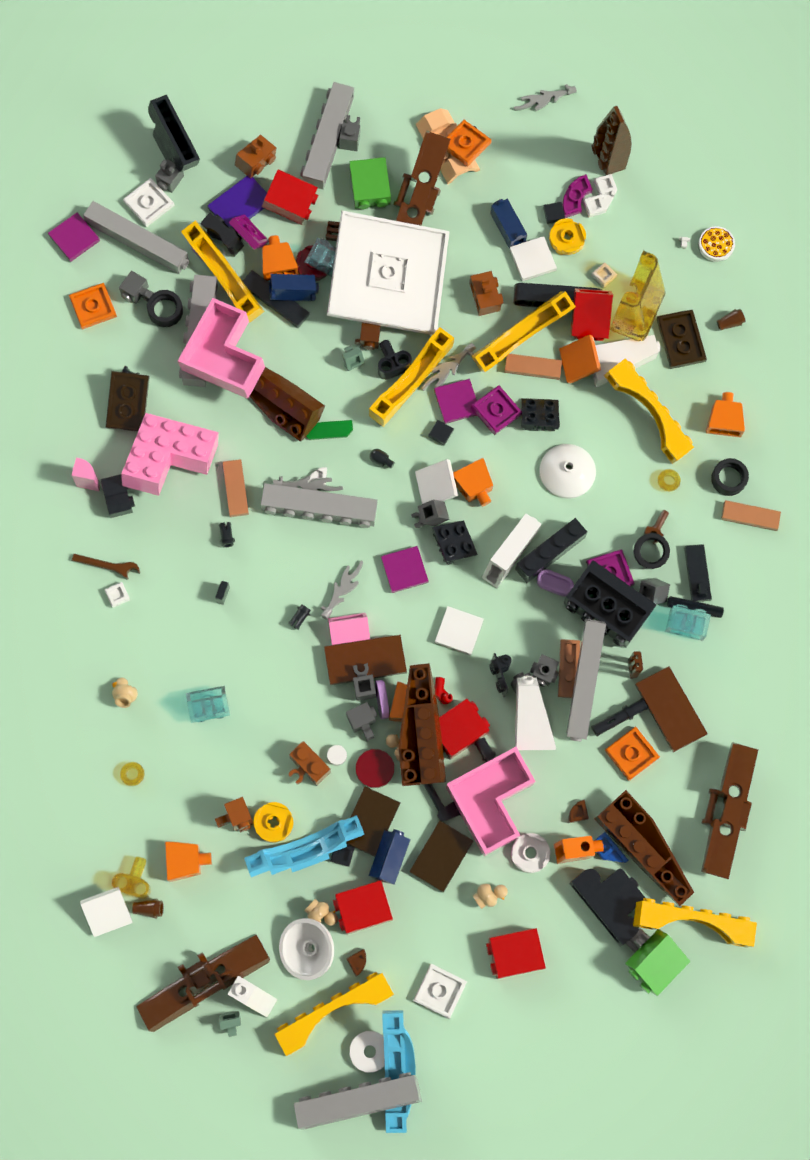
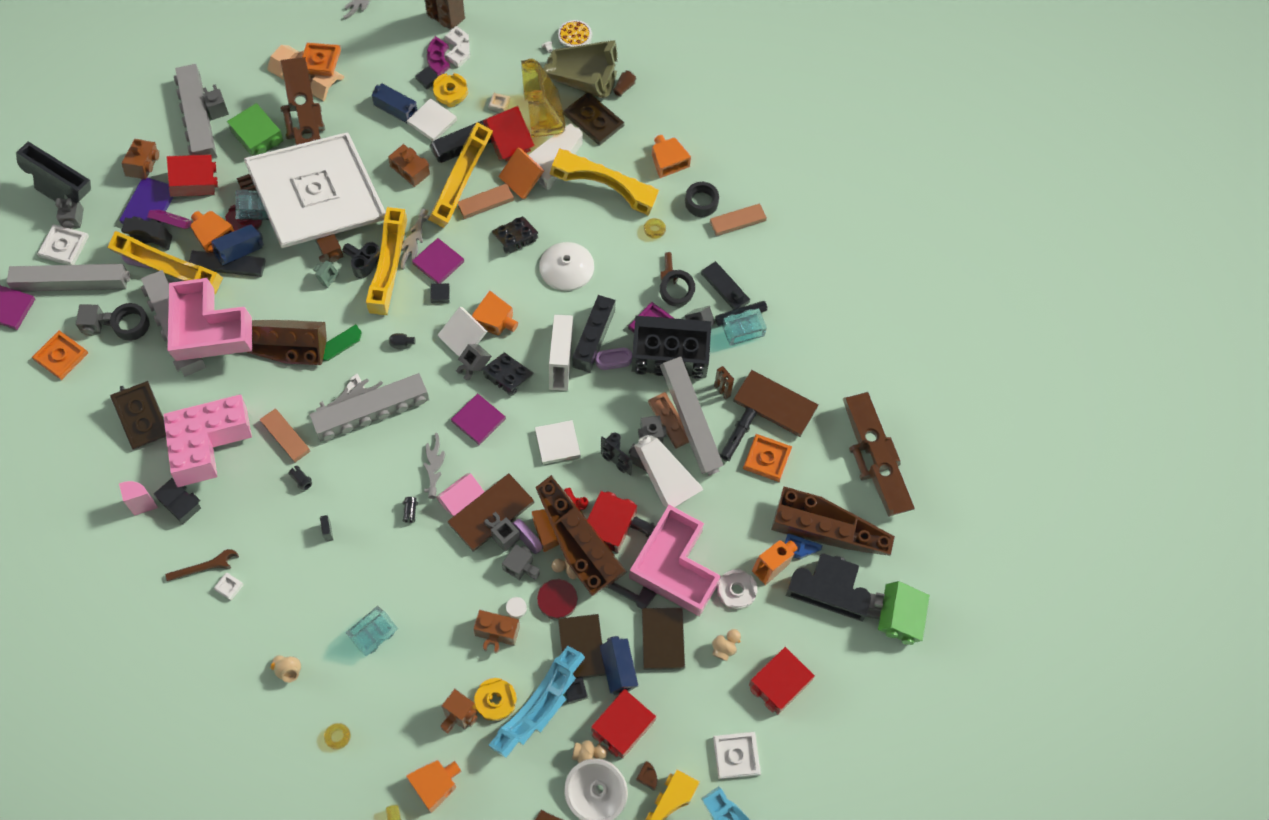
camera: 30 degrees left, 10 degrees down
(496, 410) = (476, 249): magenta tile -> none
(578, 812) = (755, 531): reddish brown tile -> none
(702, 285) = (585, 67): none -> olive cone
(734, 931) = (945, 549): yellow arch -> none

